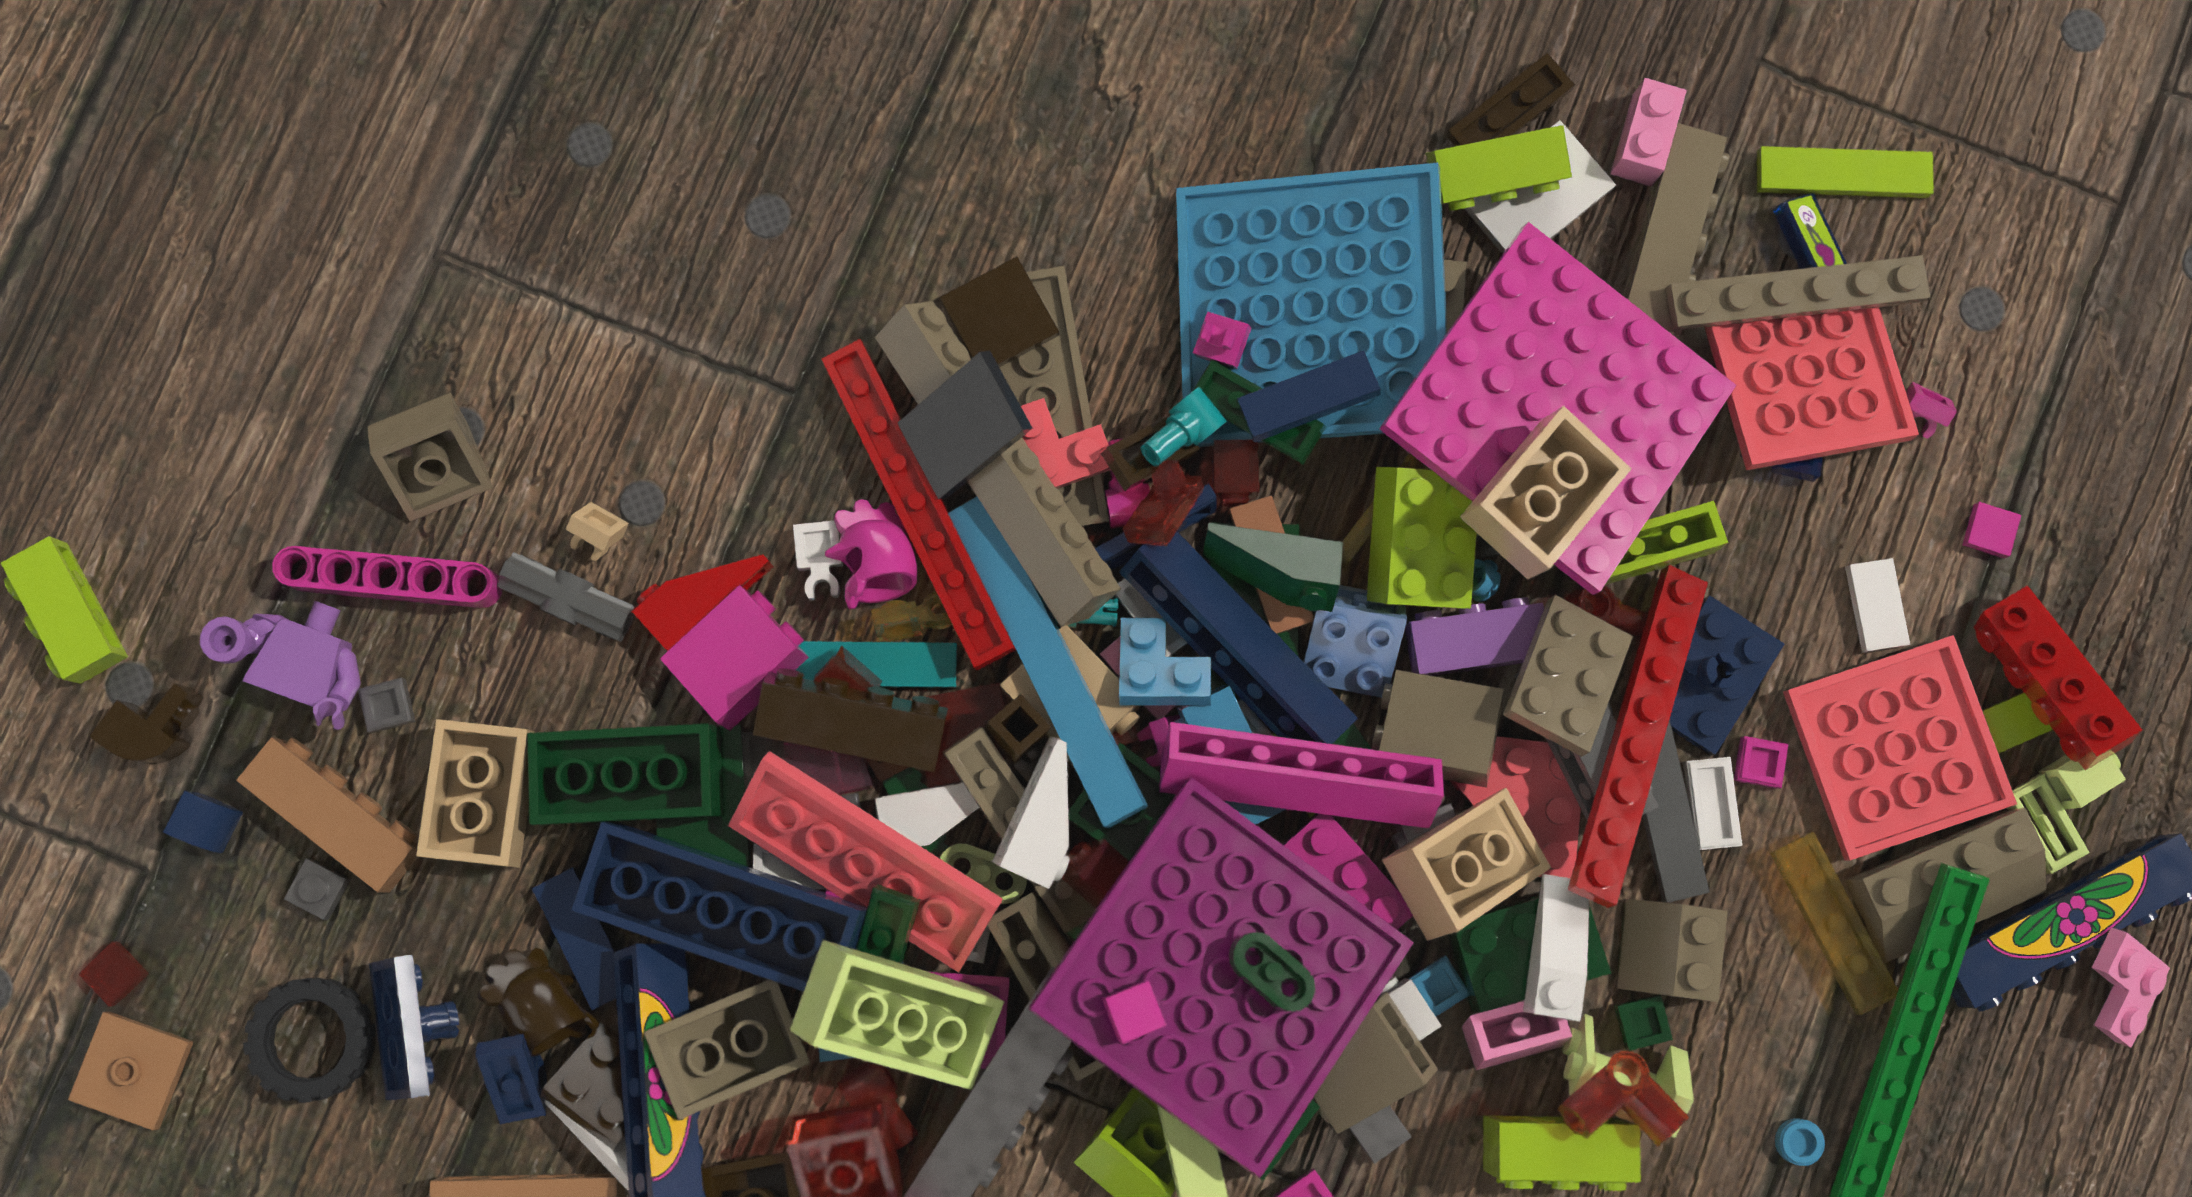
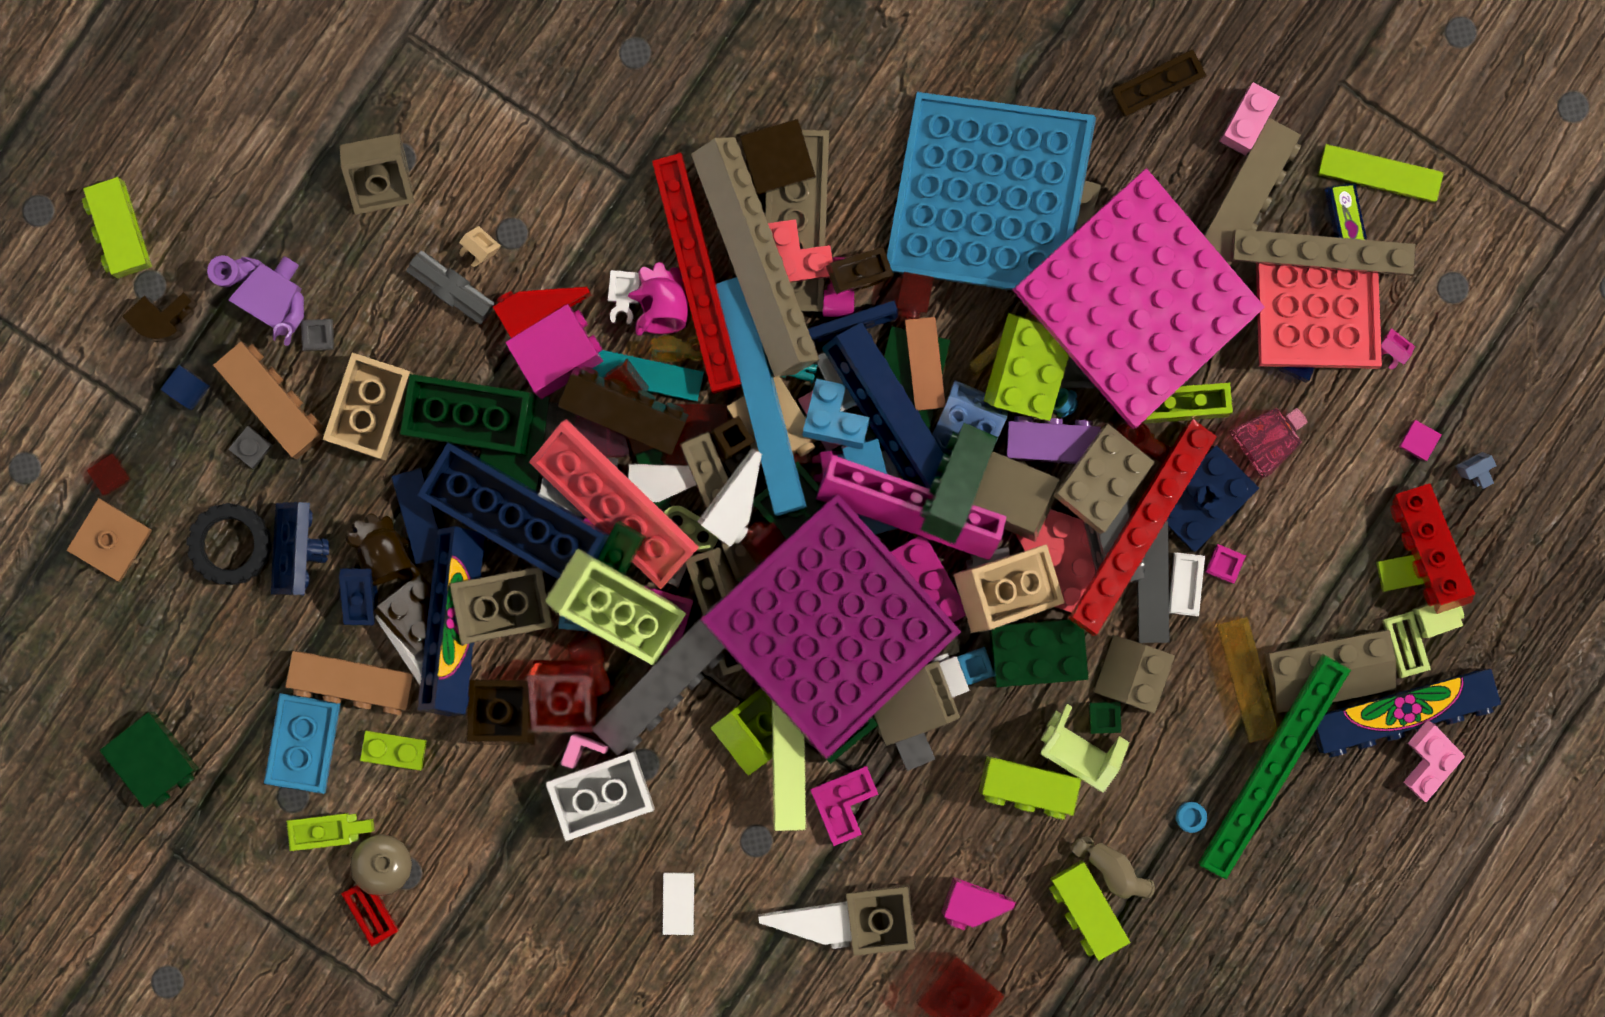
camera: 15 degrees right, 5 degrees up
(367, 570) = (321, 242): dark pink beam -> none
(964, 424) = (738, 229): black tile -> none
(1134, 1012) = (767, 636): dark pink tile -> none
(1164, 506) = (860, 310): clear red hinge -> none
(1189, 423) = (889, 257): teal pin -> none
(1222, 340) = (924, 204): dark pink tile -> none
(1225, 387) = (937, 259): dark green tile -> none
(1271, 969) = (861, 629): dark green plate -> none
(1285, 566) = (930, 366): slope -> none
(1309, 396) = (972, 256): dark blue tile -> none
(1362, 726) = (958, 483): none -> dark green brick
(1502, 166) = (1139, 124): lime brick -> none
(1512, 1034) = (1018, 704): bright pink brick -> none
(1545, 493) = (1110, 356): tan brick -> none
(1547, 210) = (1166, 143): white tile -> none
(1558, 952) = (1054, 657): white slope -> none
(1604, 1096) = (1061, 756): clear red piece -> none
(1782, 572) = (1269, 439): none -> clear pink torso
(1877, 605) = (1329, 475): white tile -> none
(1899, 748) = (1319, 573): coral plate -> none
(2085, 553) = (1477, 469): none -> sand blue tile

